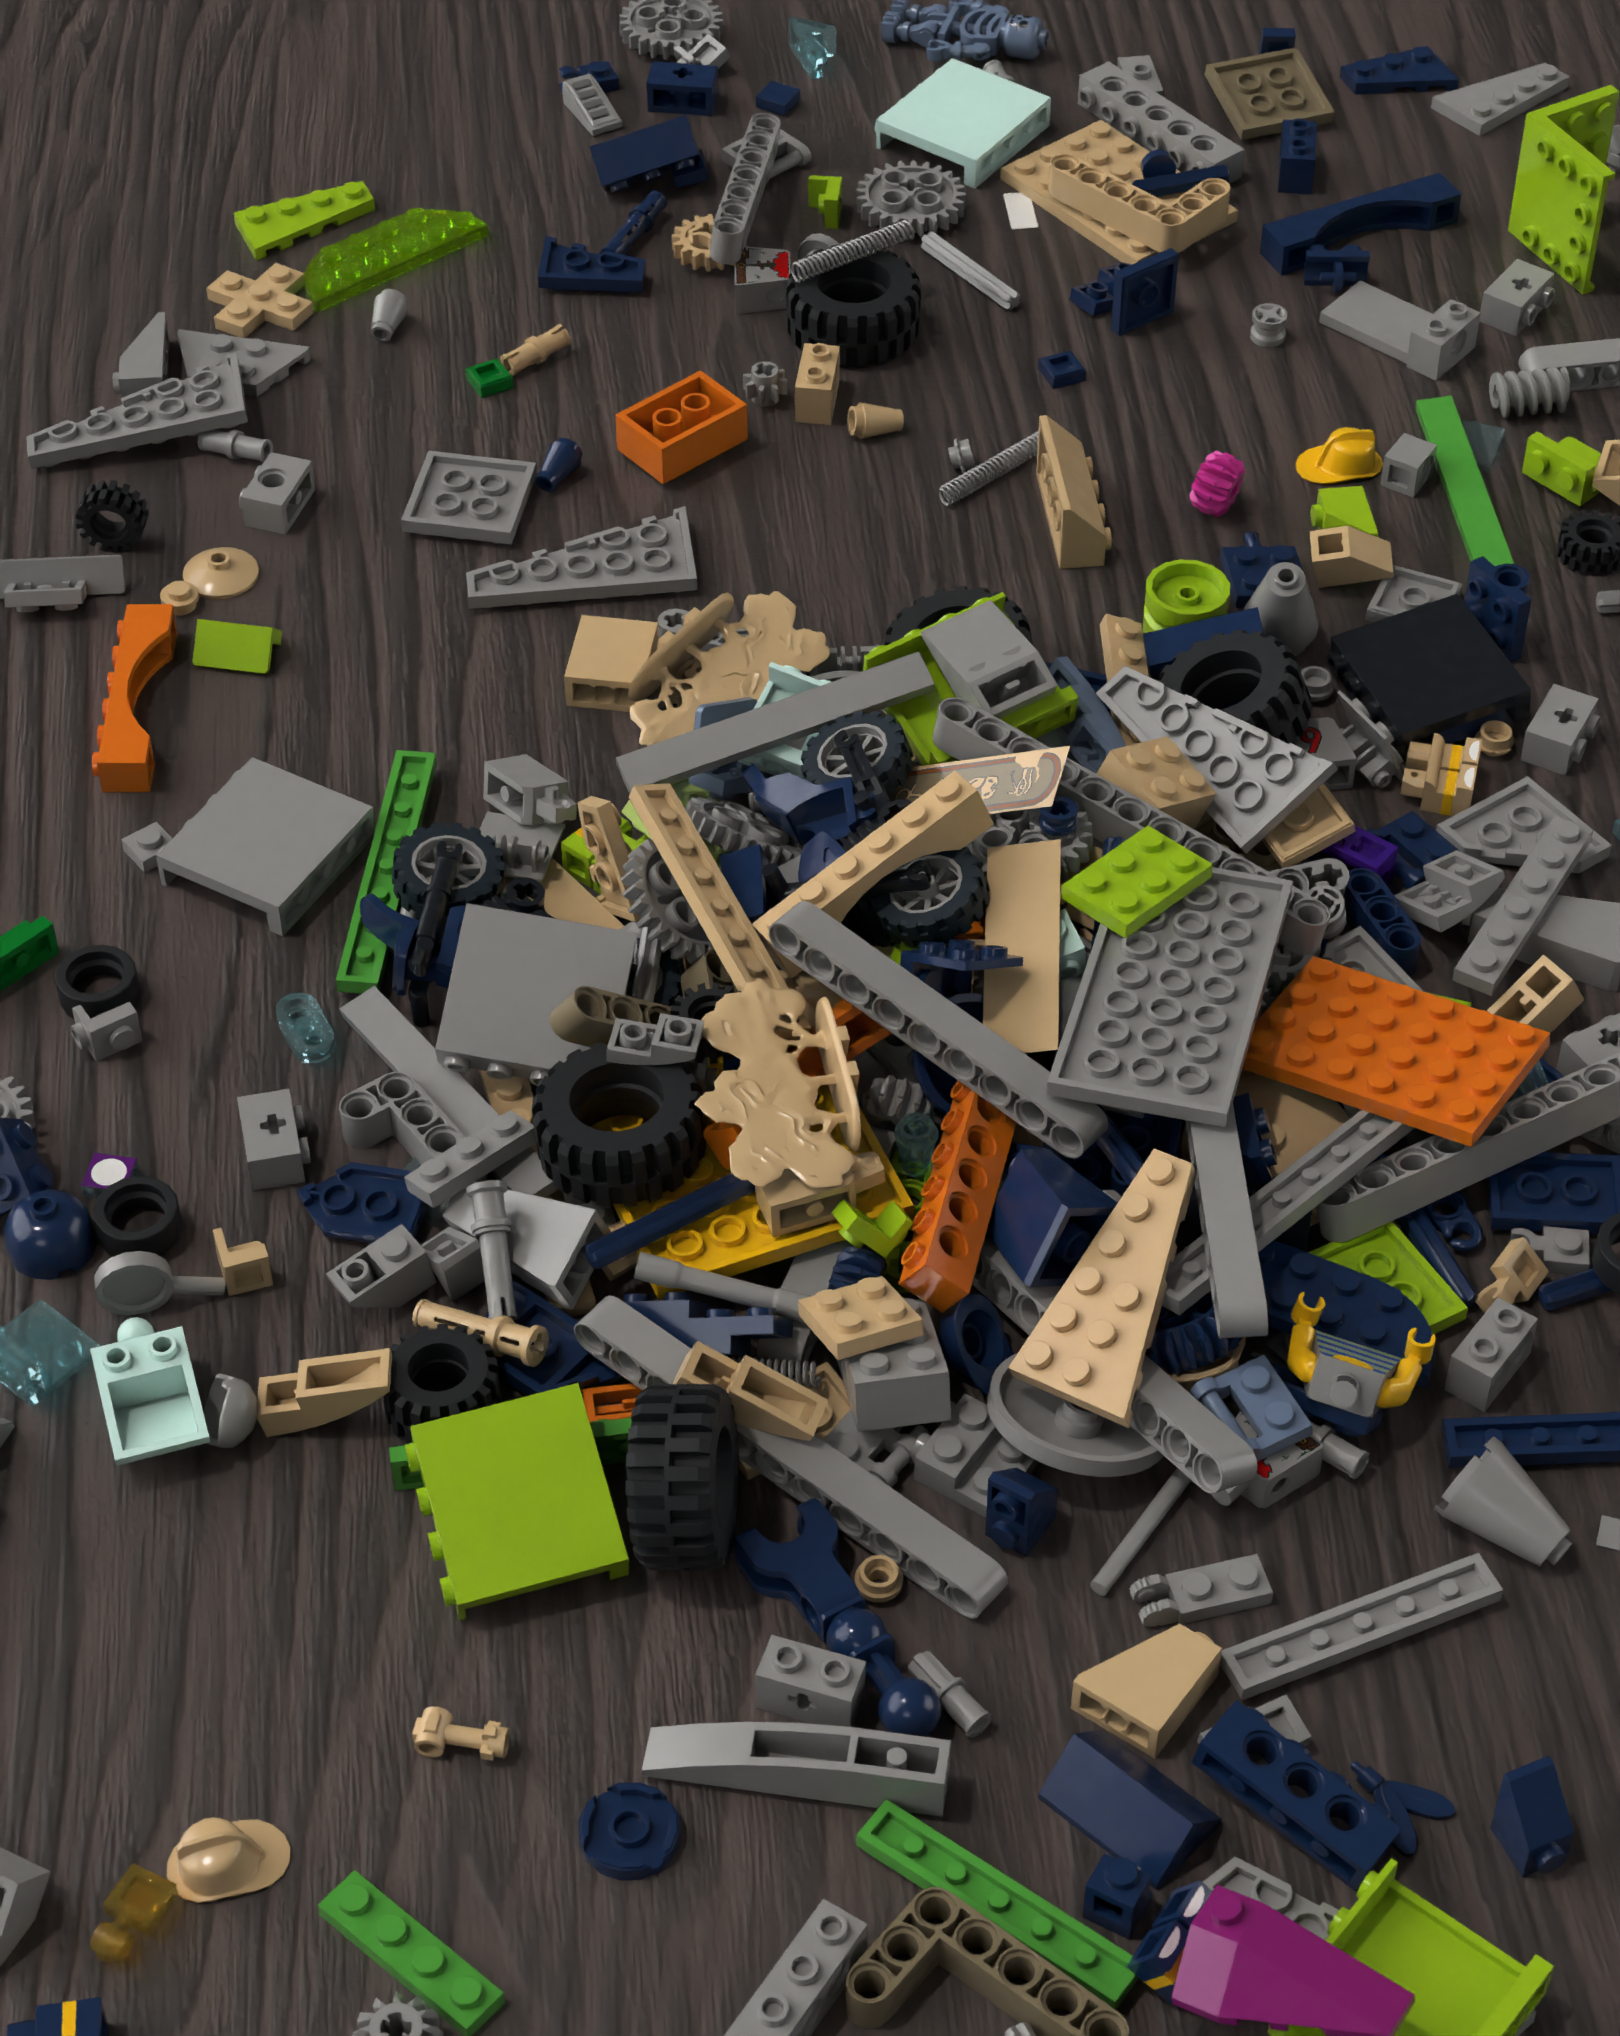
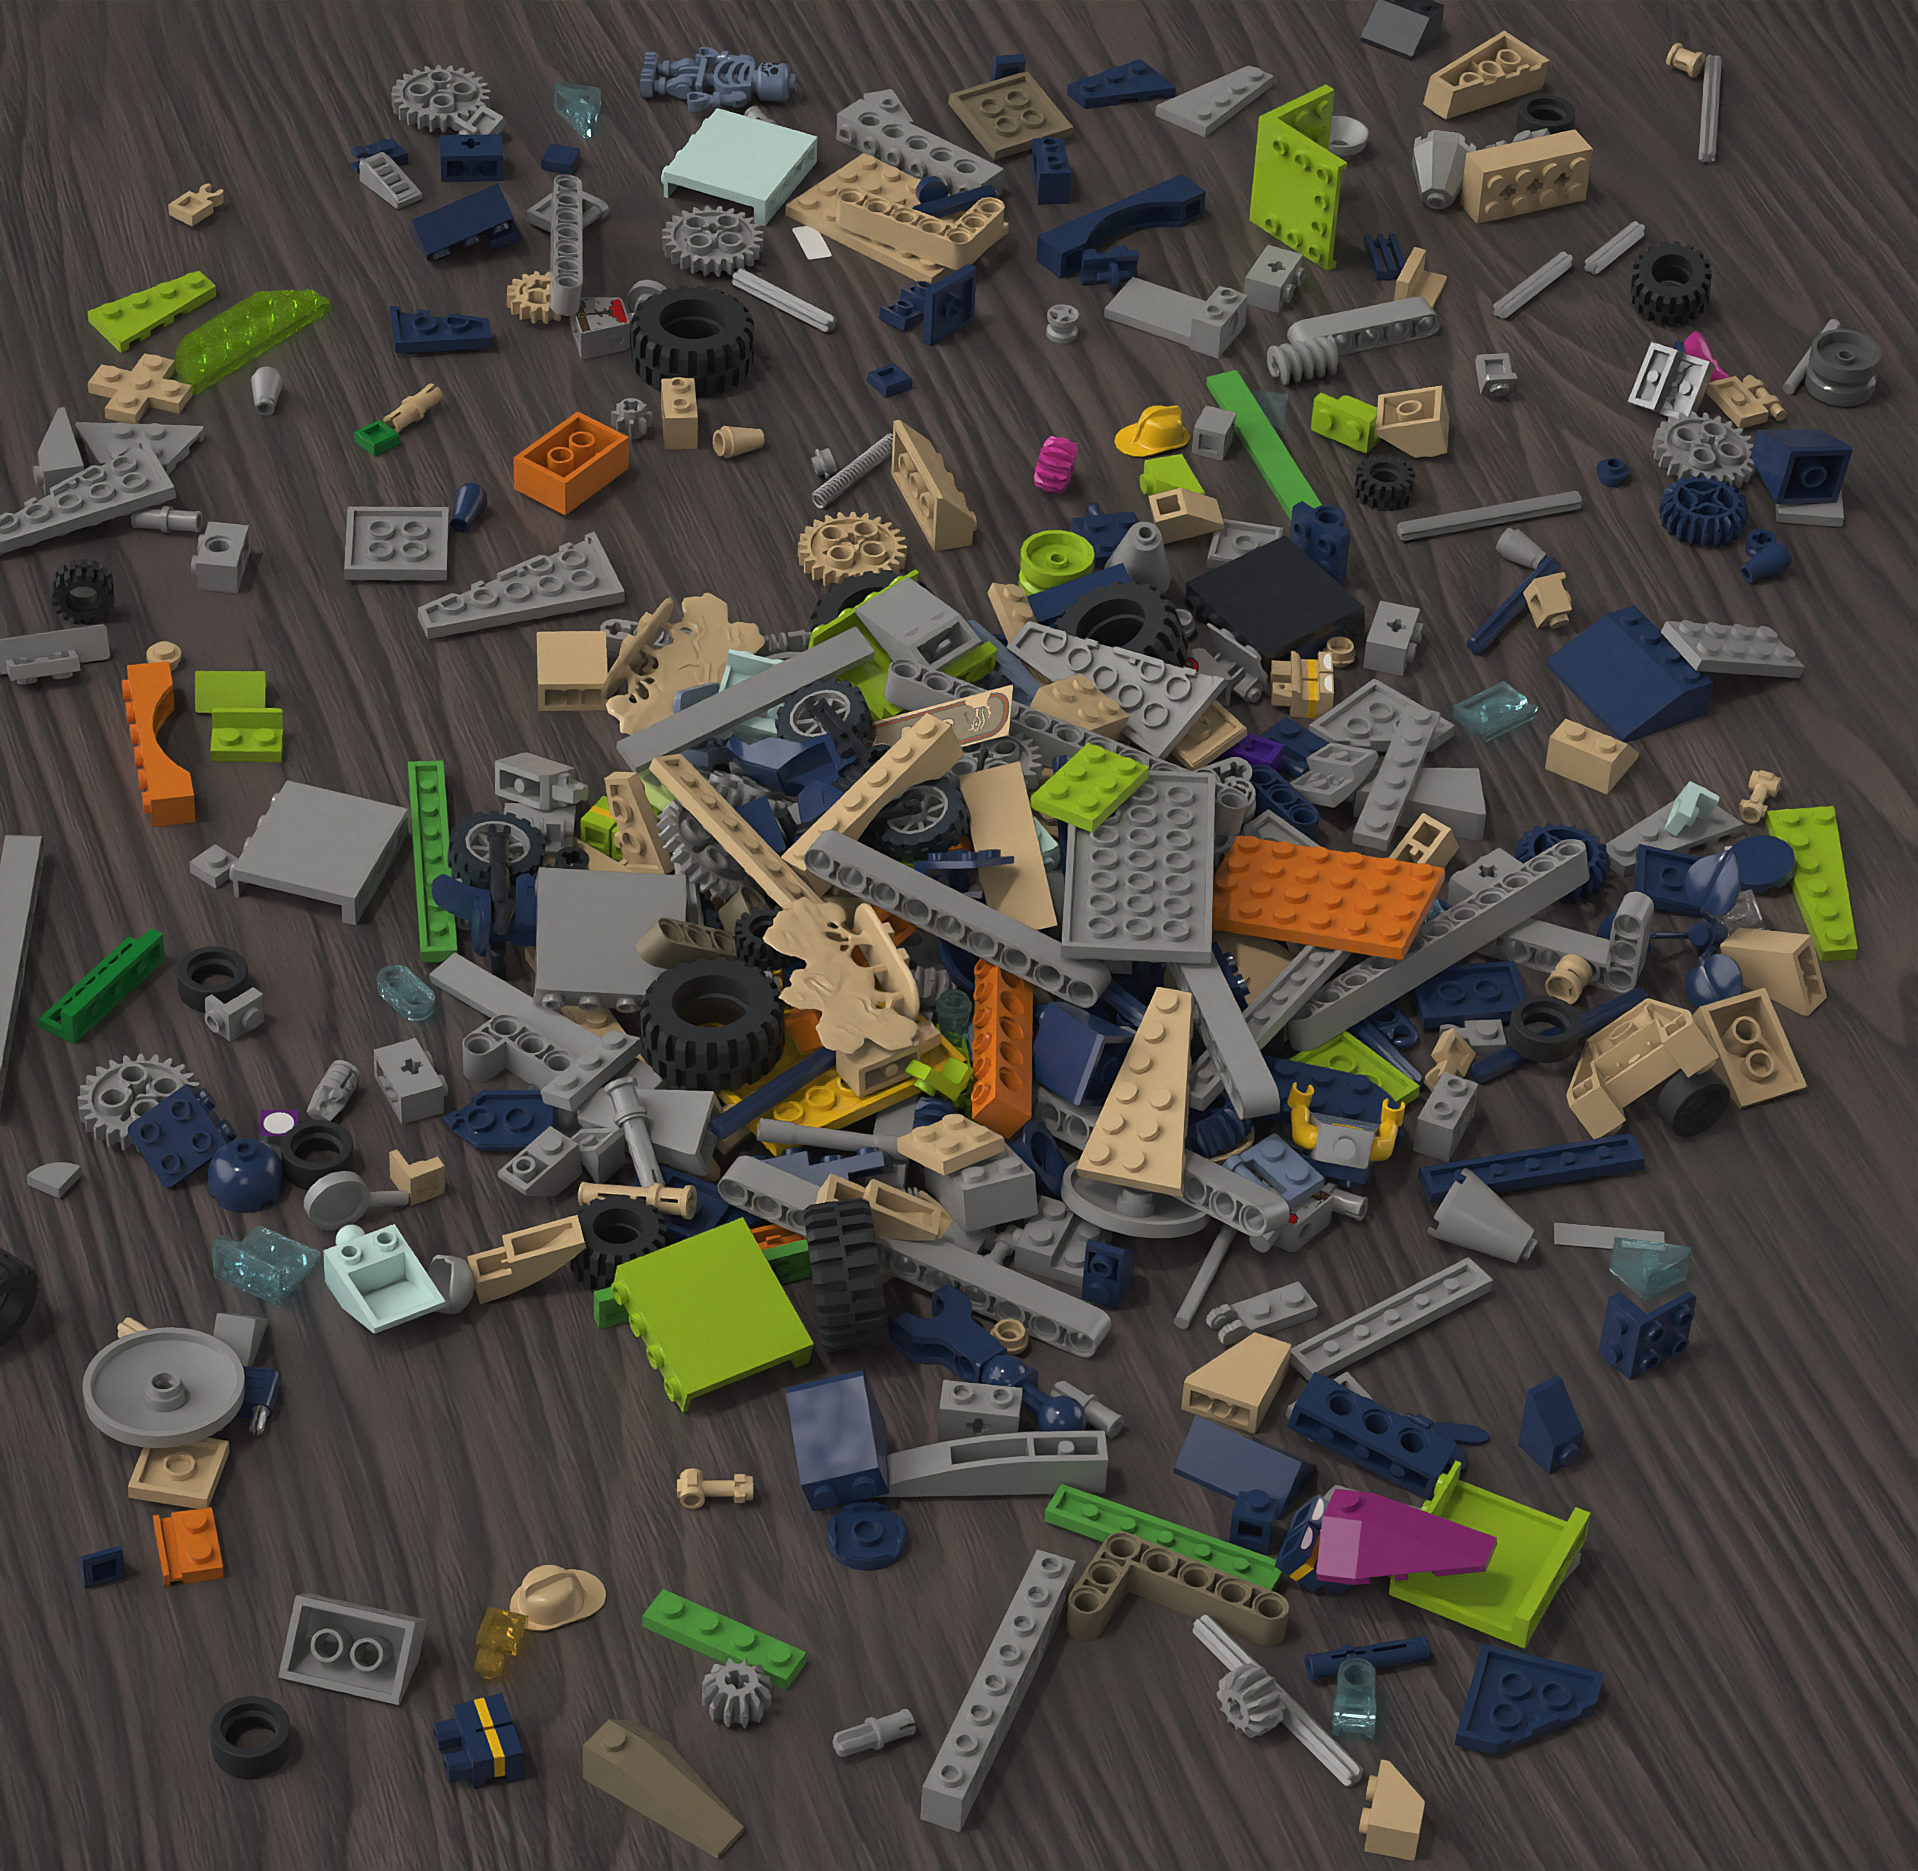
camera: 15 degrees left, 5 degrees down
(182, 1141) = (334, 1091): none -> light grey hinge
(221, 572) = (192, 631): tan dish -> none
(235, 698) = (247, 735): none -> lime bracket
(381, 114) = (193, 207): none -> tan plate
(620, 1701) = (838, 1440): none -> dark blue slope
(650, 207) = (470, 284): dark blue pin -> none
(668, 1042) = (744, 953): light grey slope -> none
(827, 196) = (635, 243): lime bracket -> none
(839, 248) = (660, 309): light grey piece -> none
(963, 555) = (850, 547): none -> tan gear
(1059, 818) = (1013, 745): dark blue bush -> none

